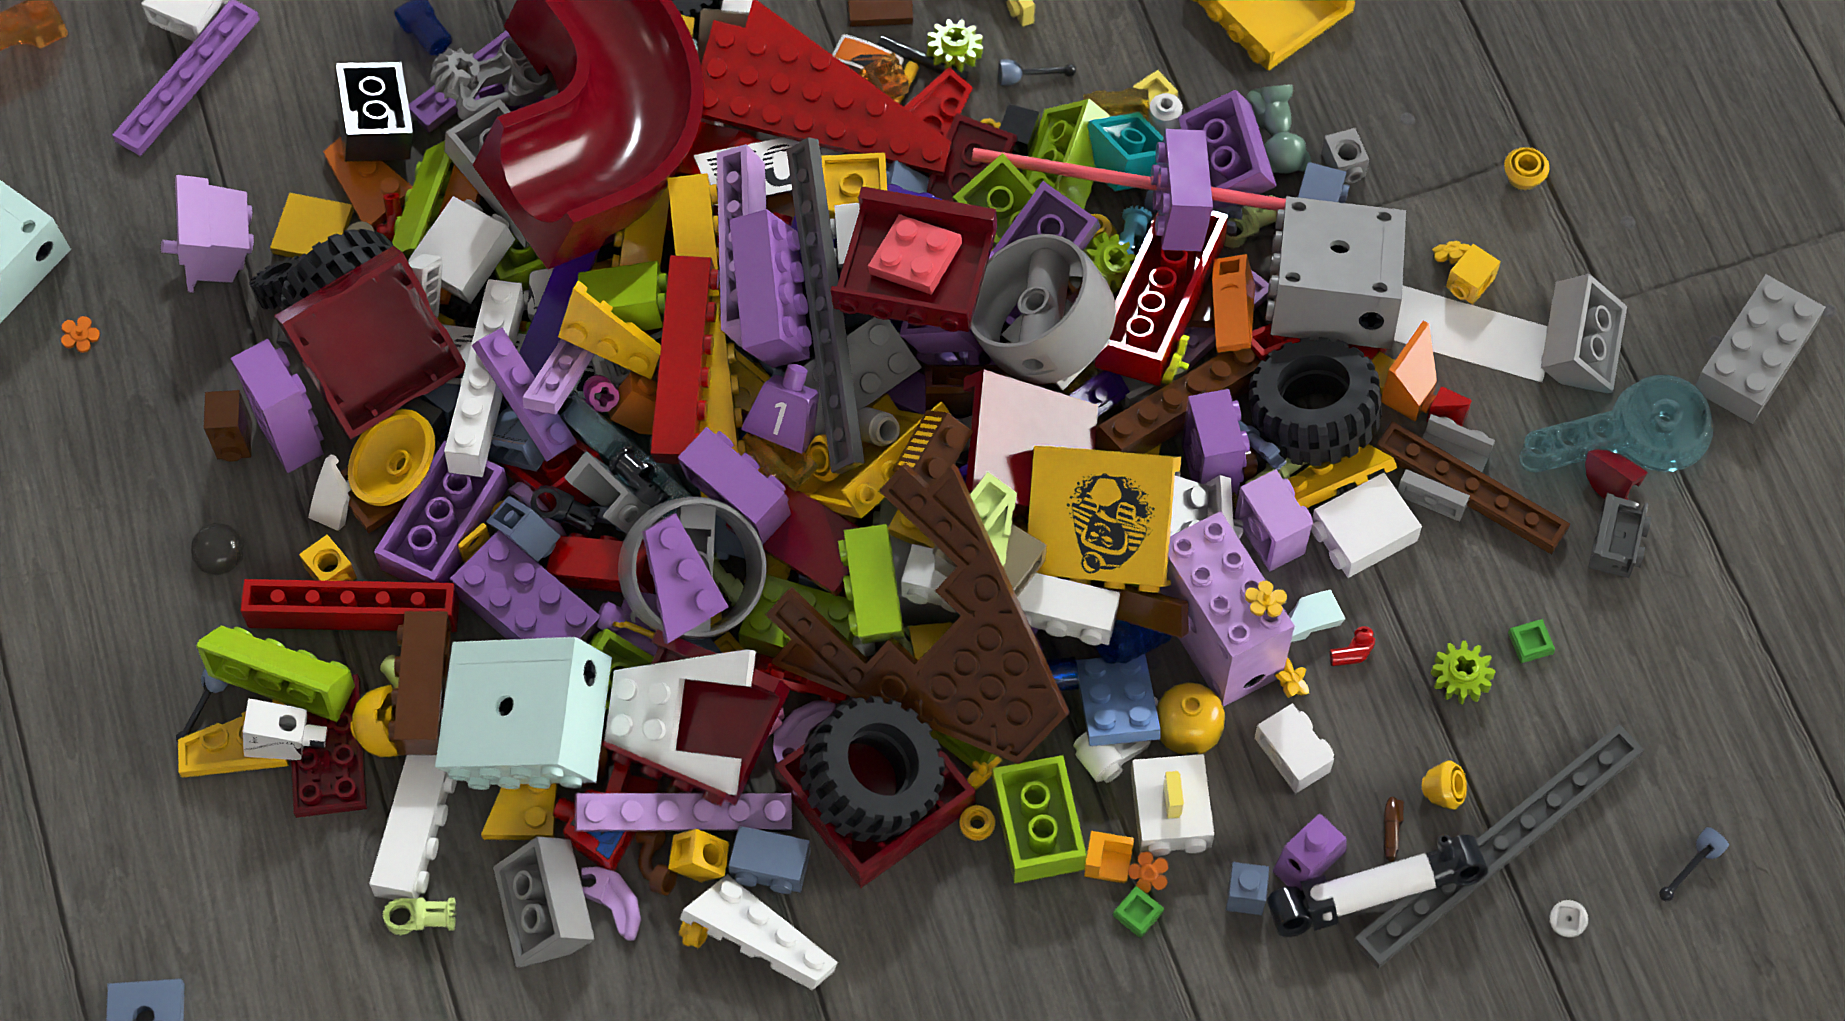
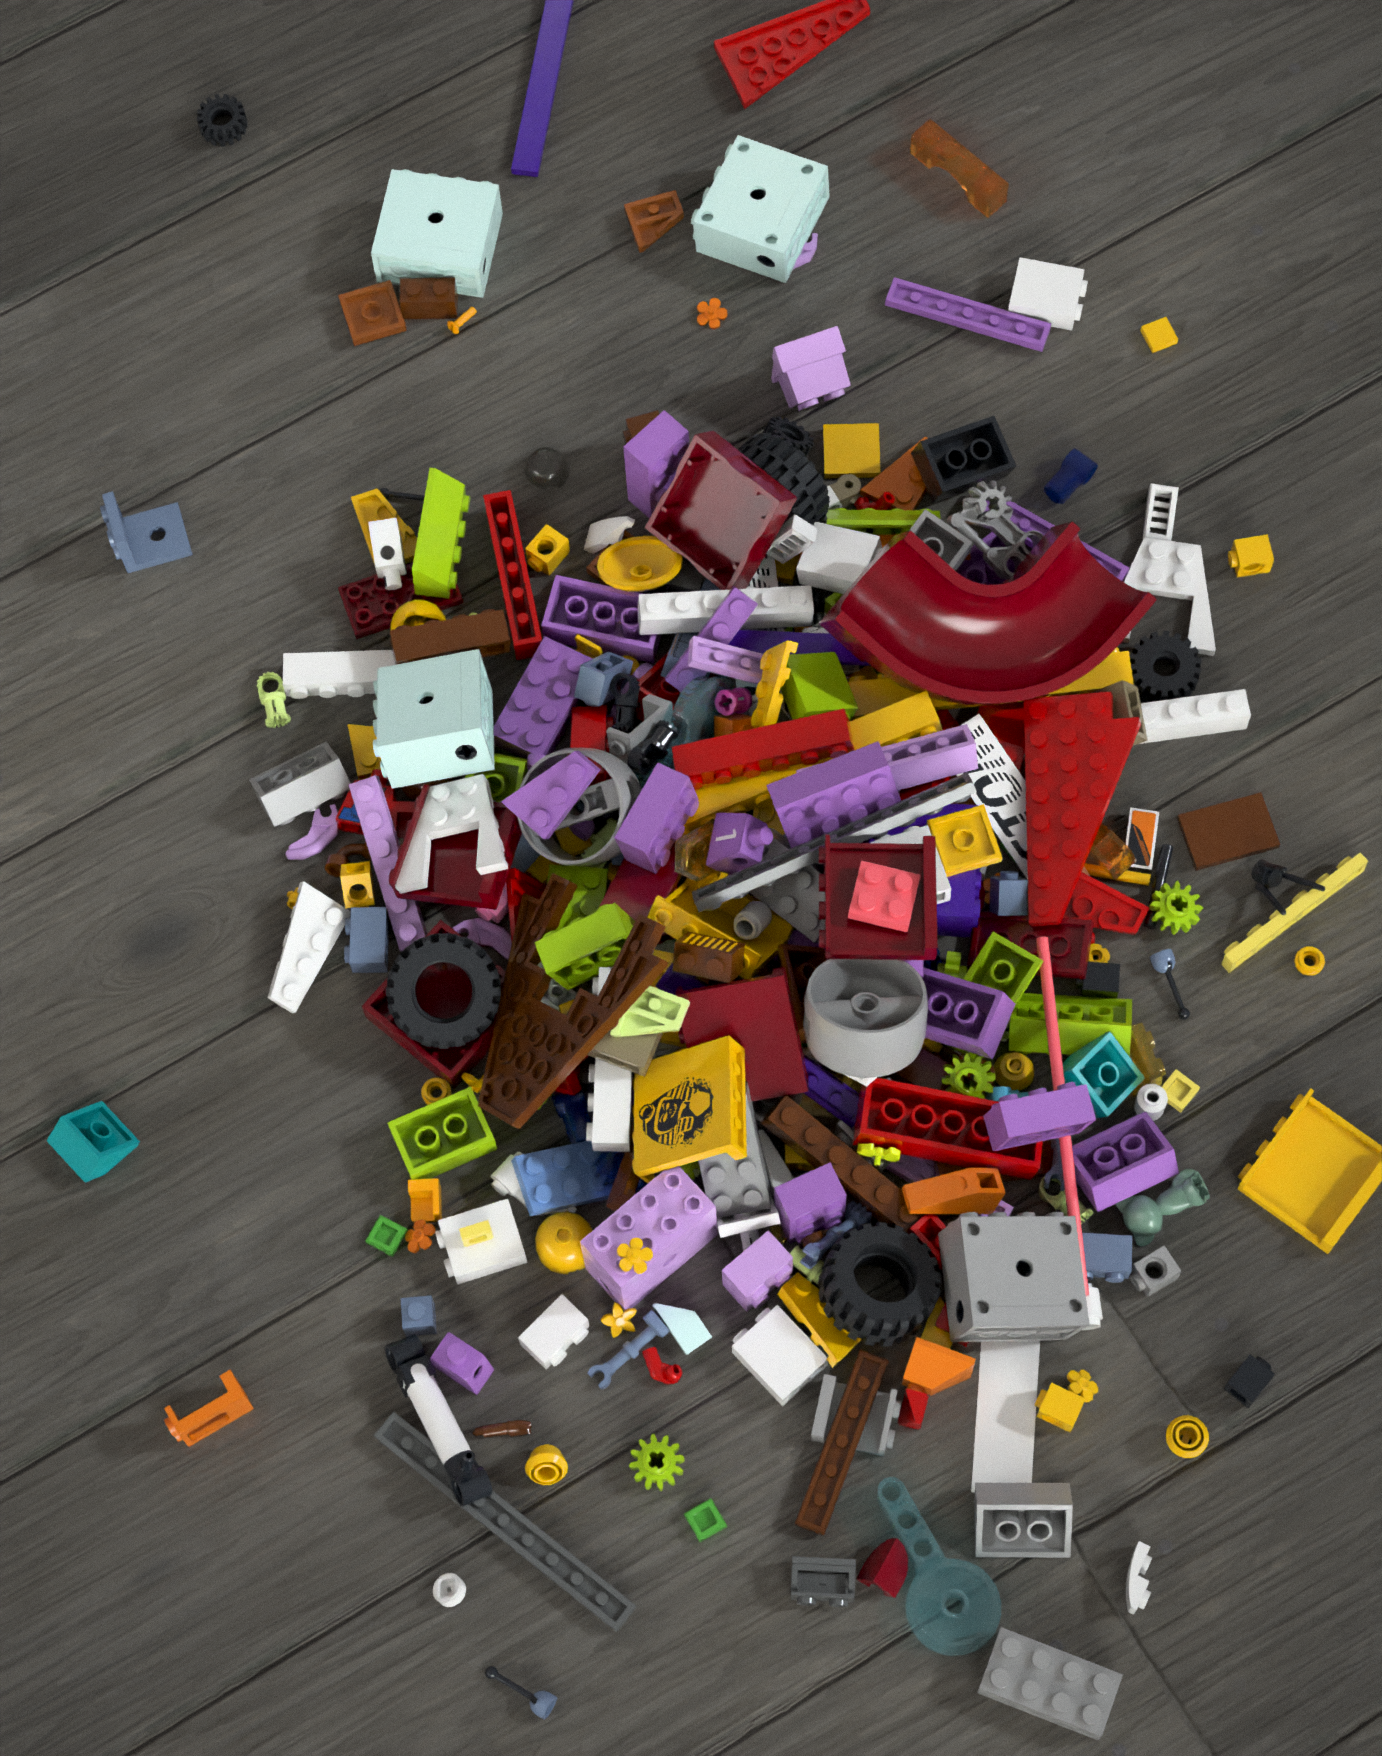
camera: 80 degrees right, 5 degrees up
(1308, 643) = (630, 1349): none -> sand blue piece
(1476, 102) = (1250, 1380): none -> black brick
(1672, 252) = (1135, 1585): none -> white slope

